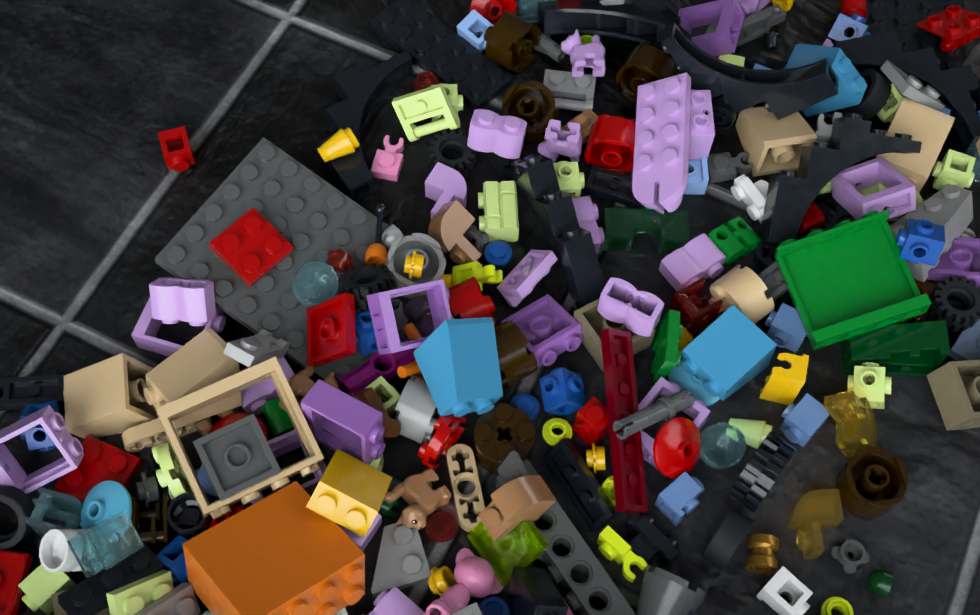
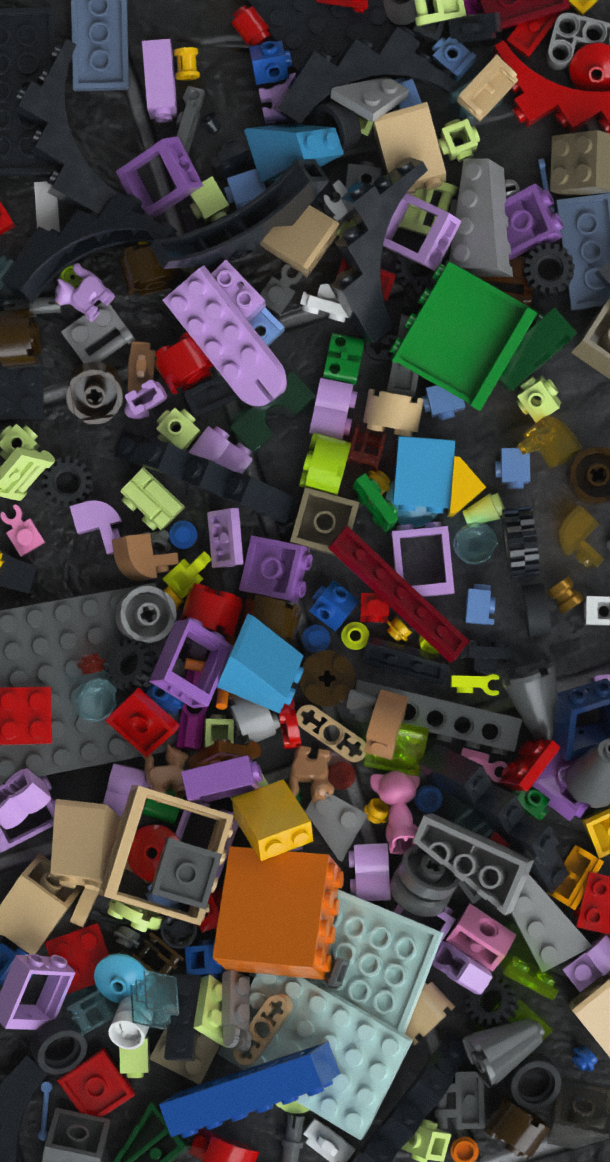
camera: 40 degrees left, 25 degrees up
(256, 348) = (110, 786): light grey plate -> none
(377, 252) = (107, 628): orange hinge -> none
(390, 235) = (106, 606): light grey hinge -> none
(414, 265) = (155, 623): yellow plate -> none
(496, 133) = (99, 440): lavender brick -> none
(624, 304) = (323, 511): lavender brick -> none
(658, 279) = (325, 464): none -> lime brick
(662, 409) = (418, 562): dark grey pin -> none
(676, 447) = (449, 577): red dish -> none
(749, 394) = (465, 486): none -> yellow slope
(785, 384) = (482, 447): yellow hinge -> none
(921, 241) = (491, 266): blue brick -> none

